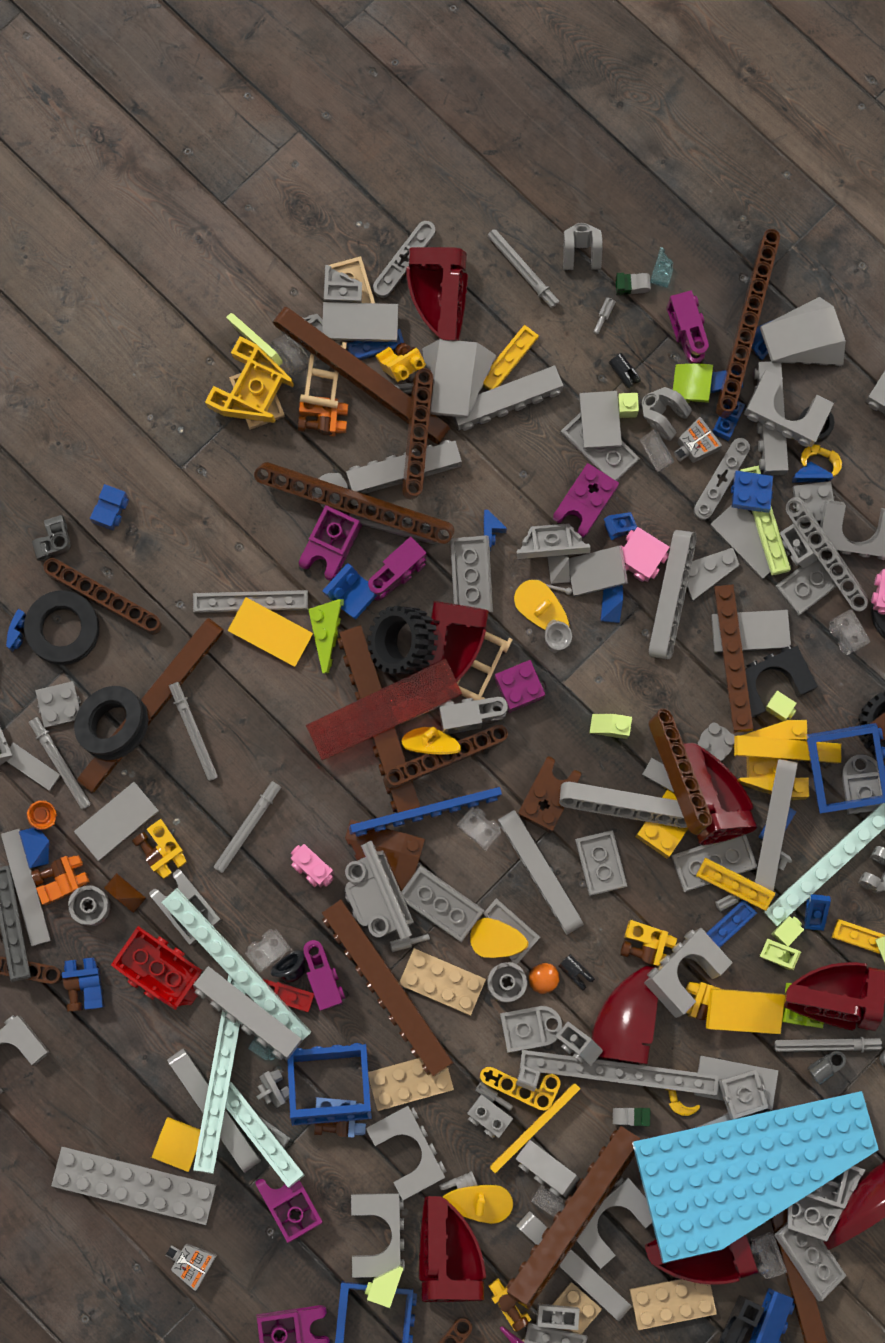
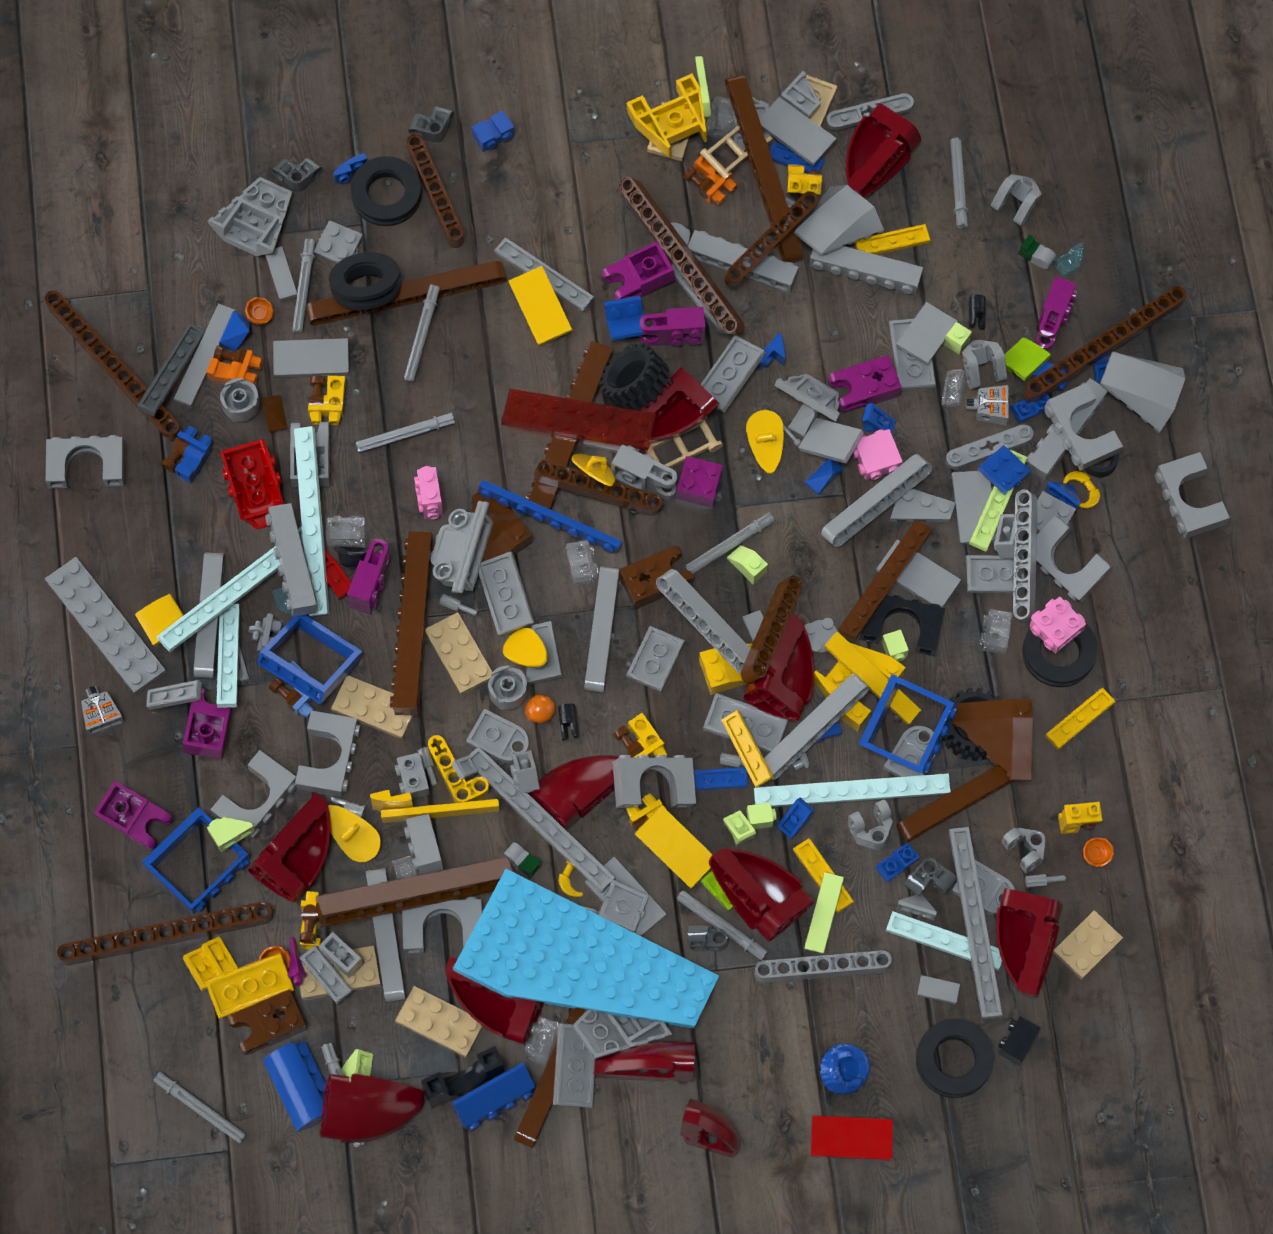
camera: 40 degrees right, 10 degrees down
(242, 1203) = (174, 695): none -> light grey tile
(325, 628) = (585, 331): lime wing -> none
(487, 1157) = (383, 801): none -> yellow slope
(557, 636) = (759, 466): light grey piece -> none
(591, 696) = (728, 544): none -> light grey axle
(604, 313) = (996, 260): light grey axle -> none

